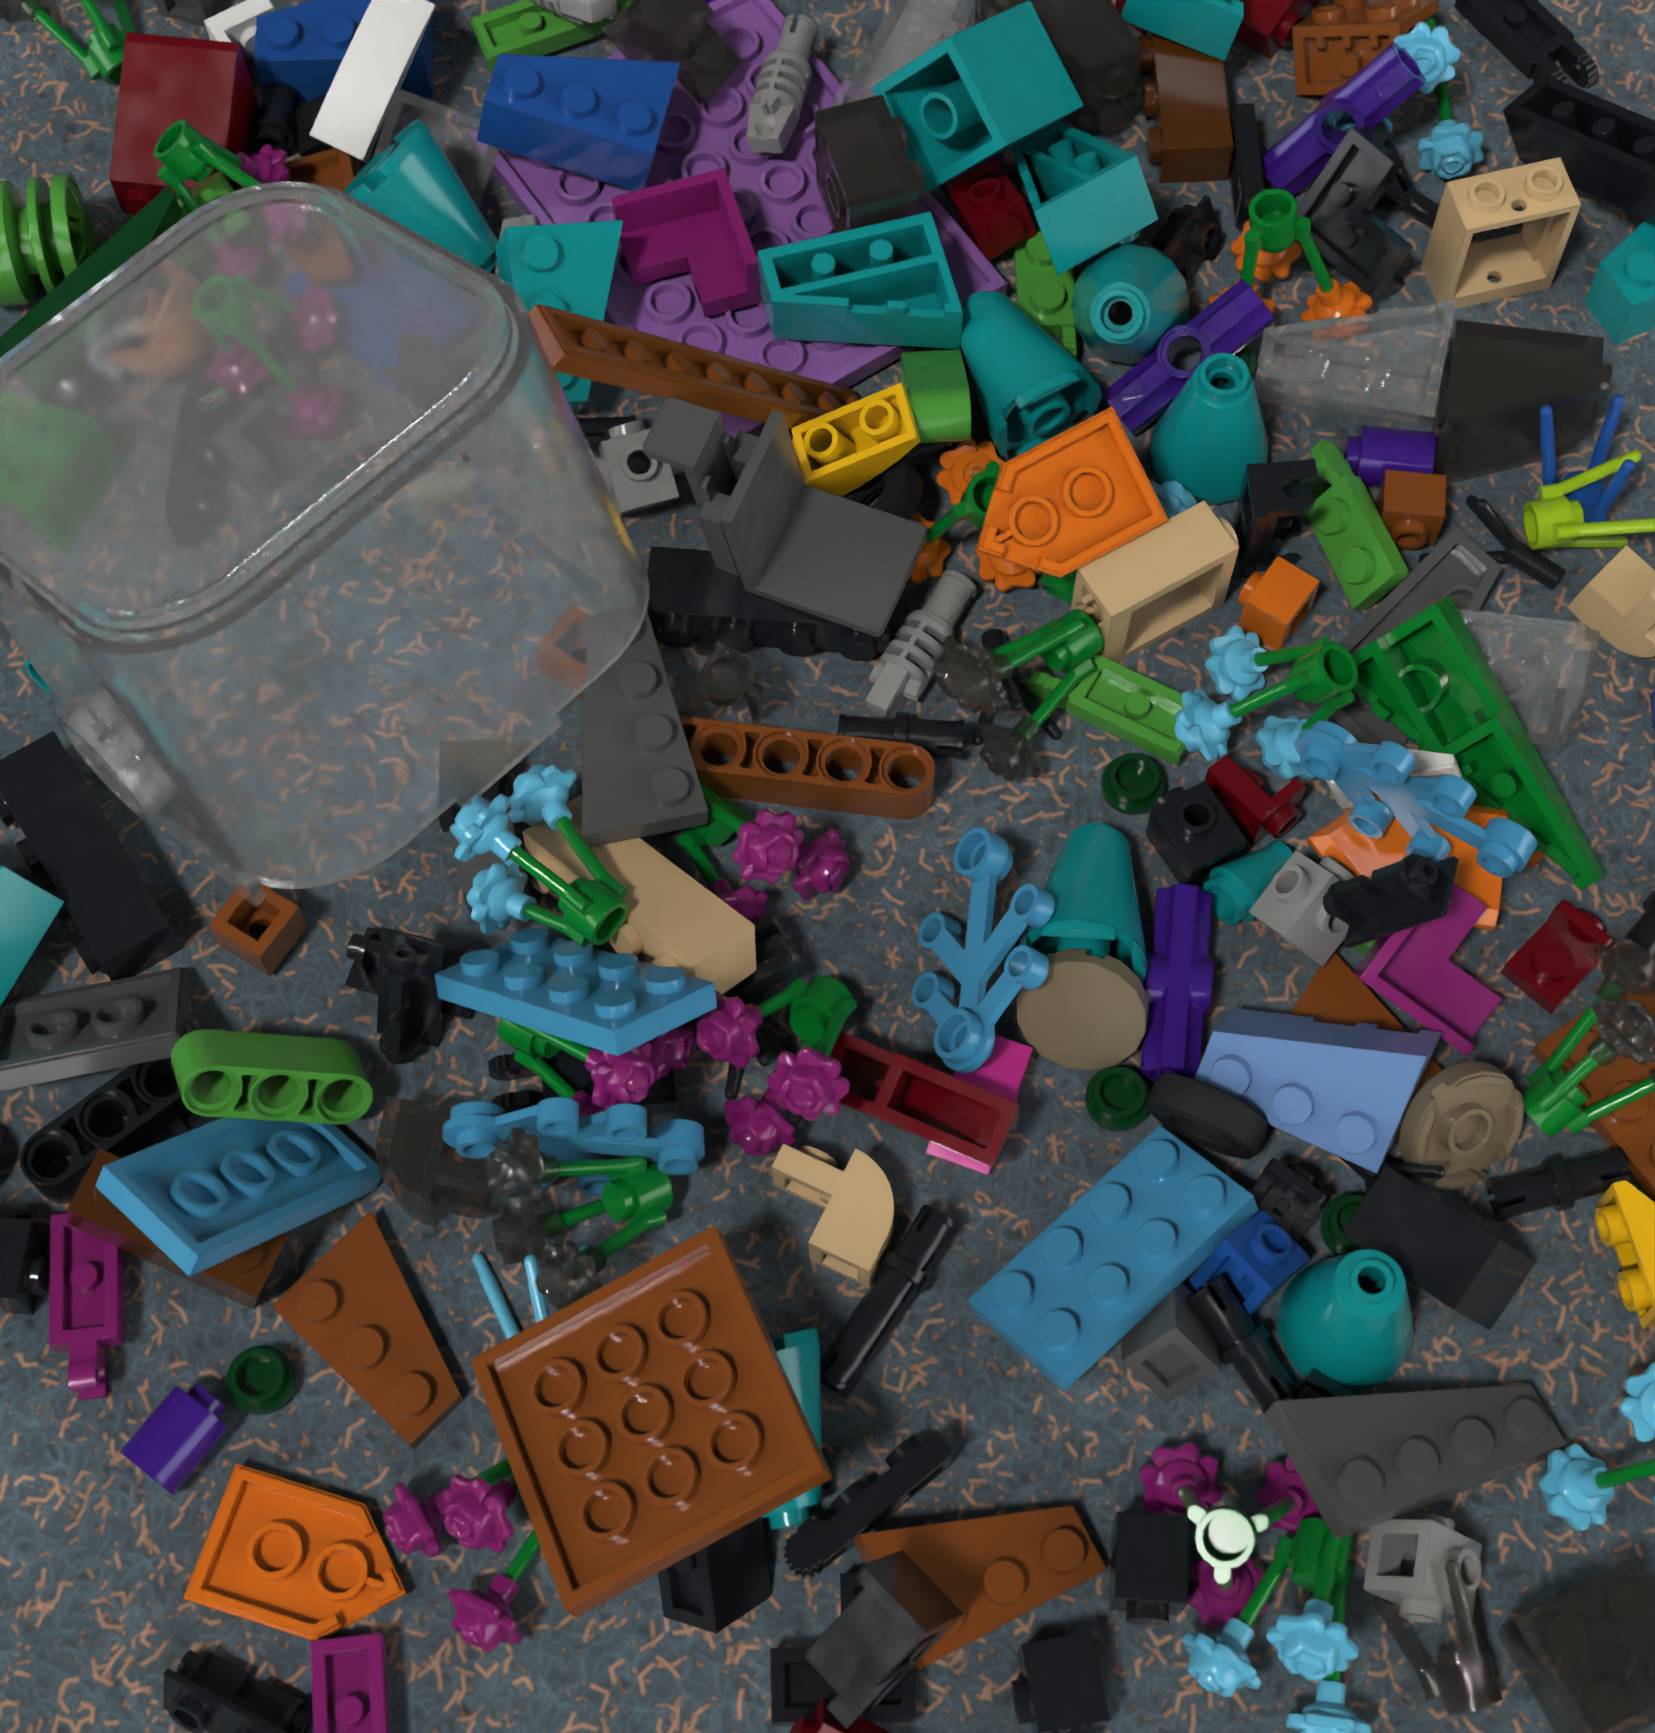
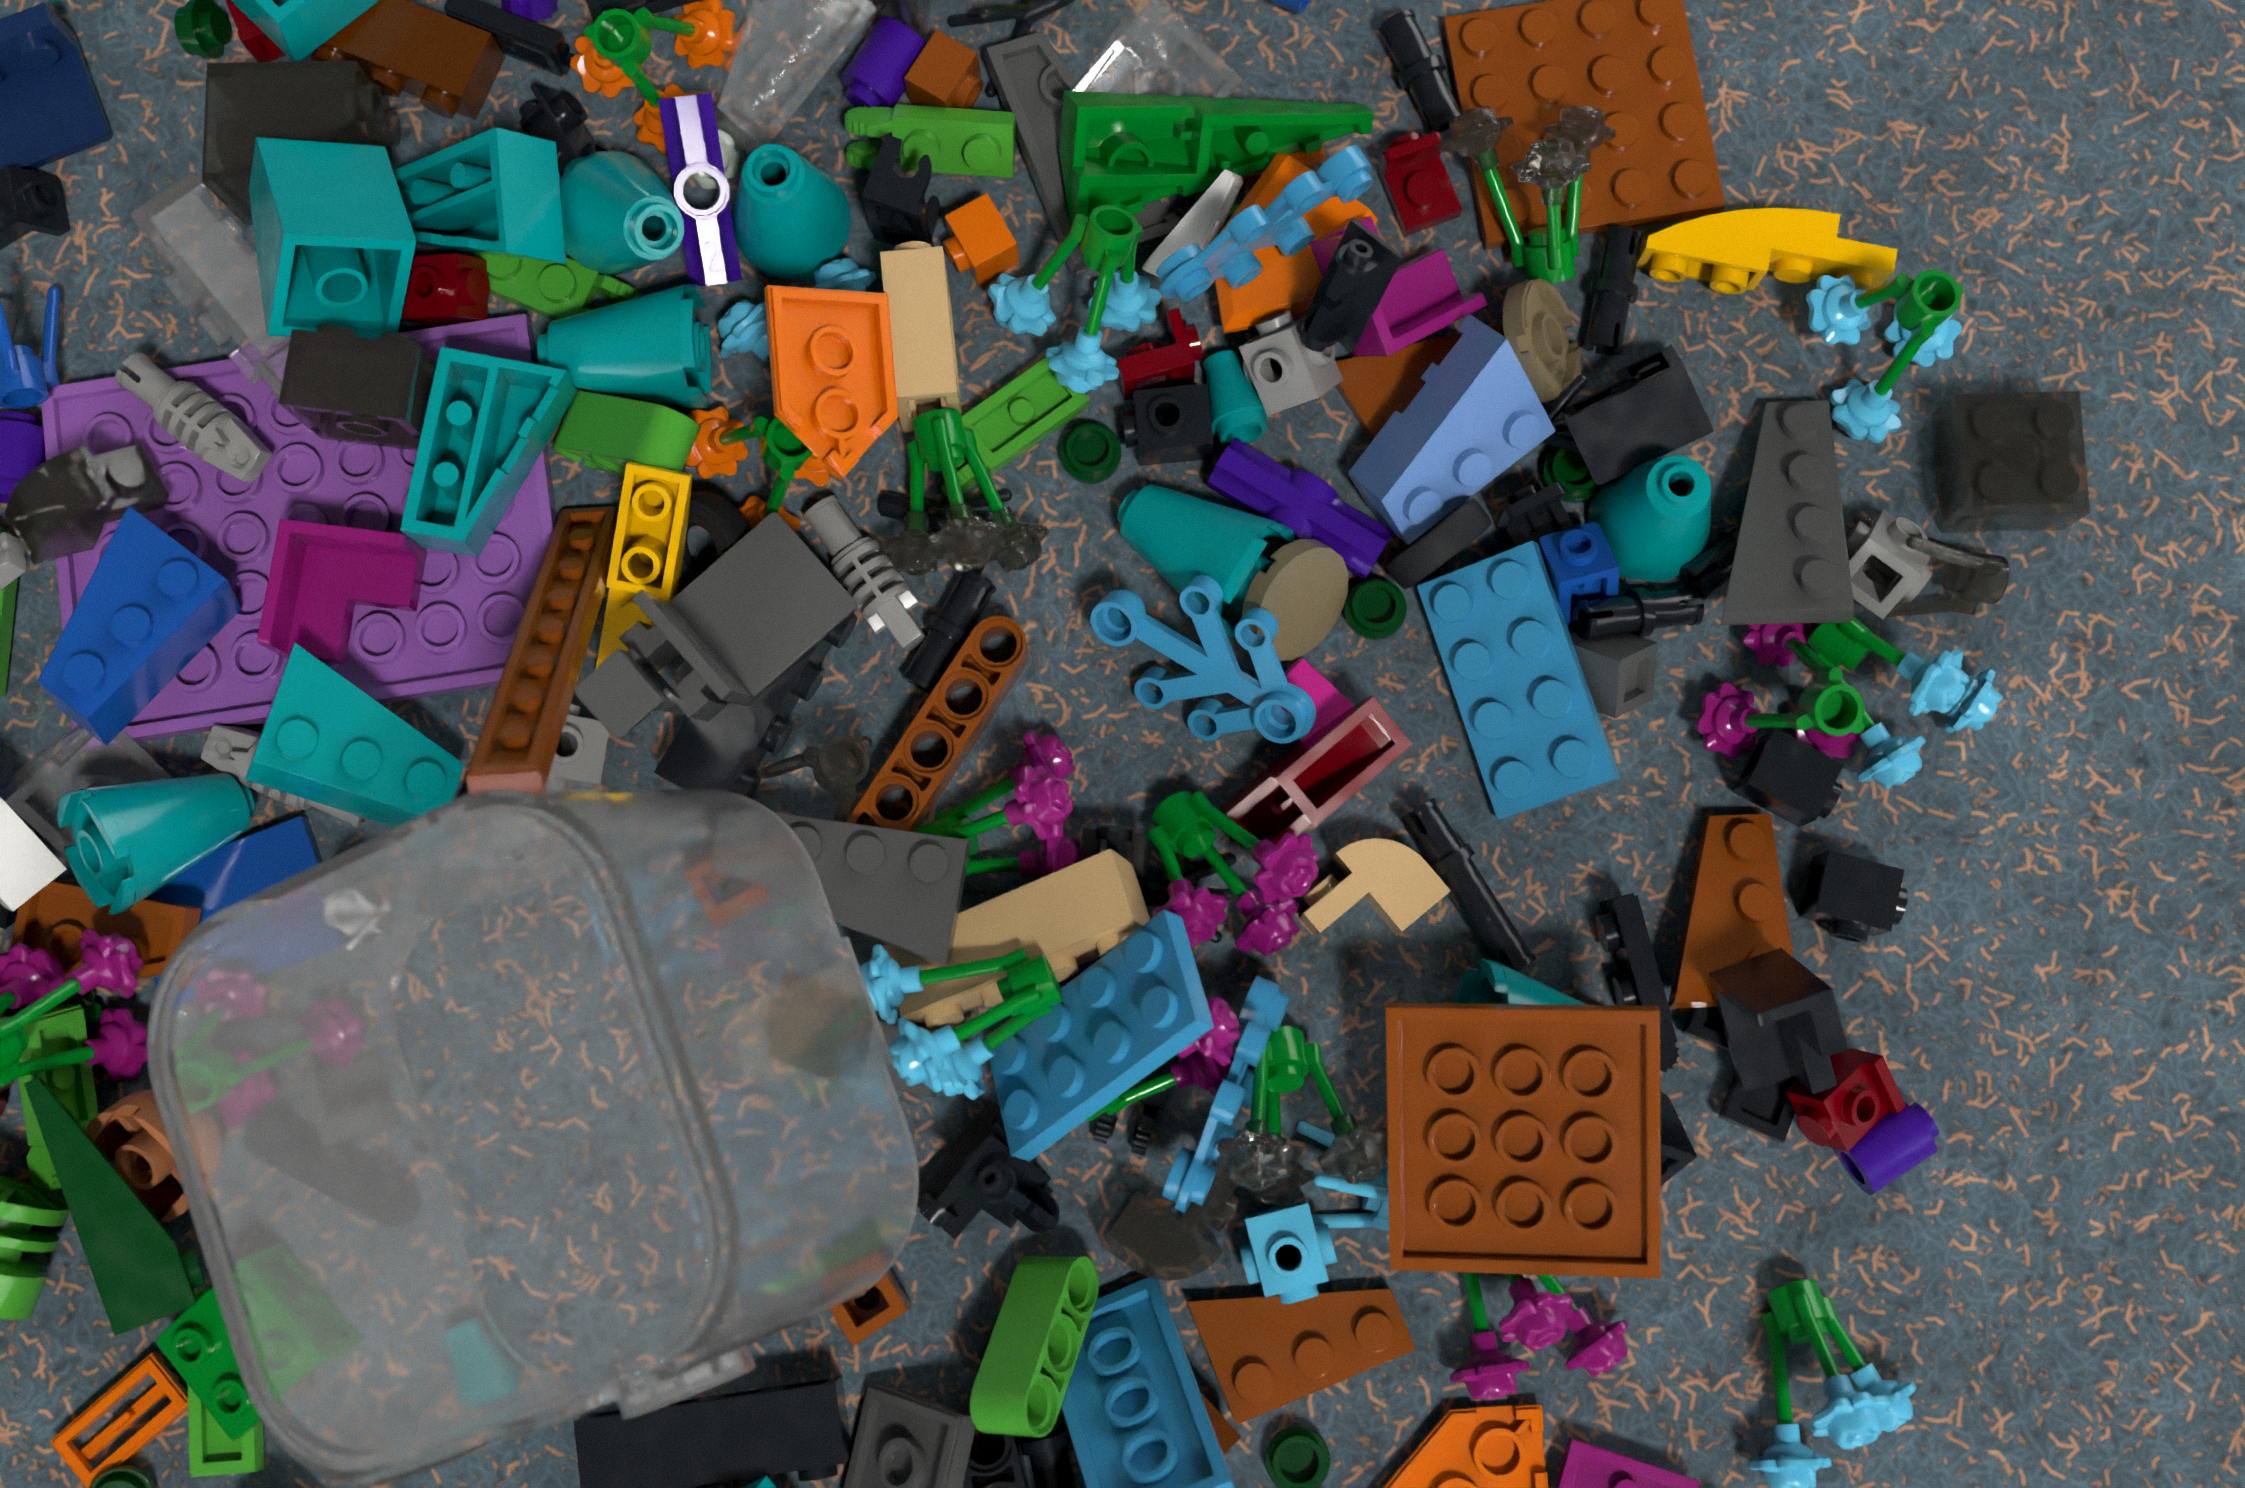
camera: 65 degrees left, 15 degrees up
(454, 1274) = (1284, 1226): none -> medium azure brick

